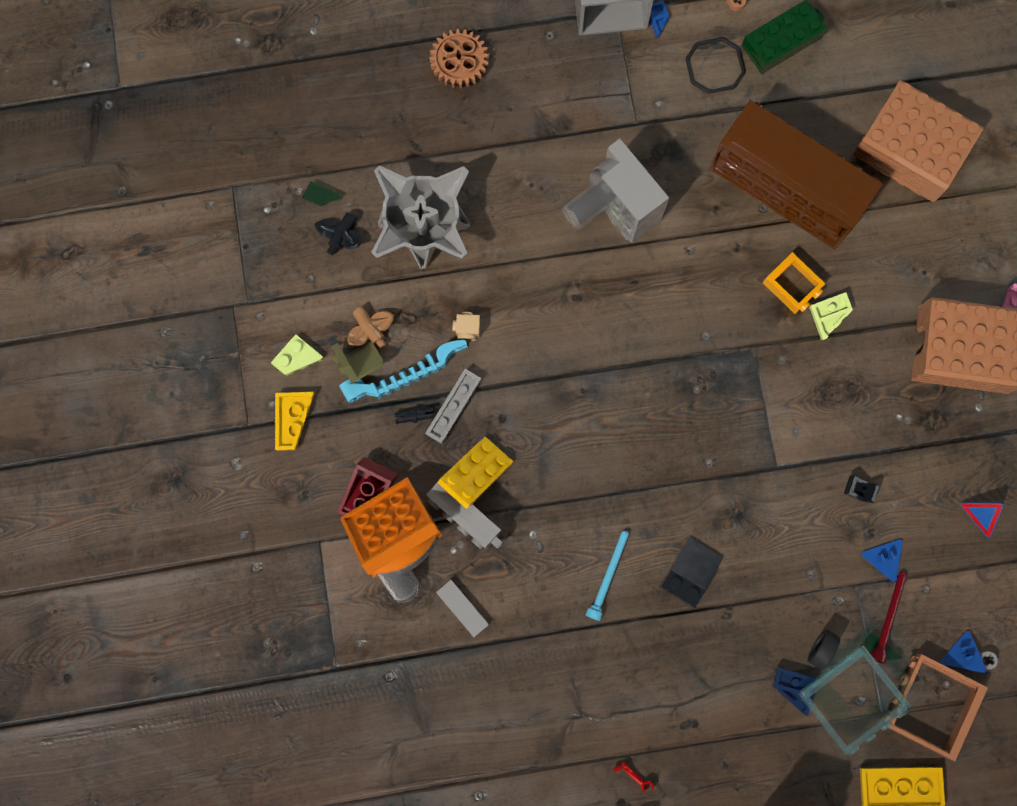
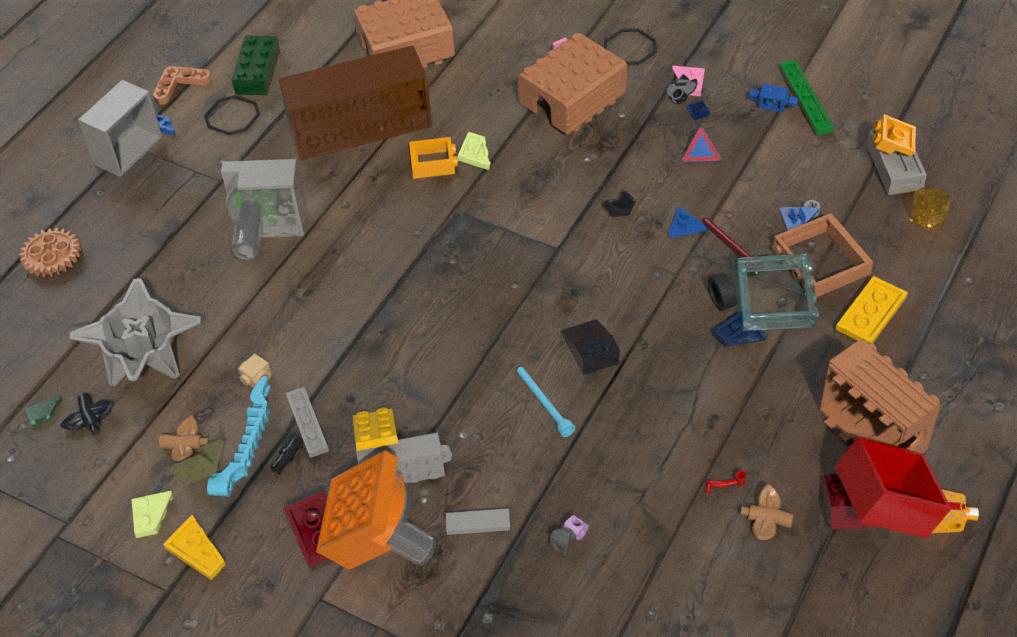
camera: 55 degrees left, 30 degrees down
(505, 689) = (572, 529): none -> leg

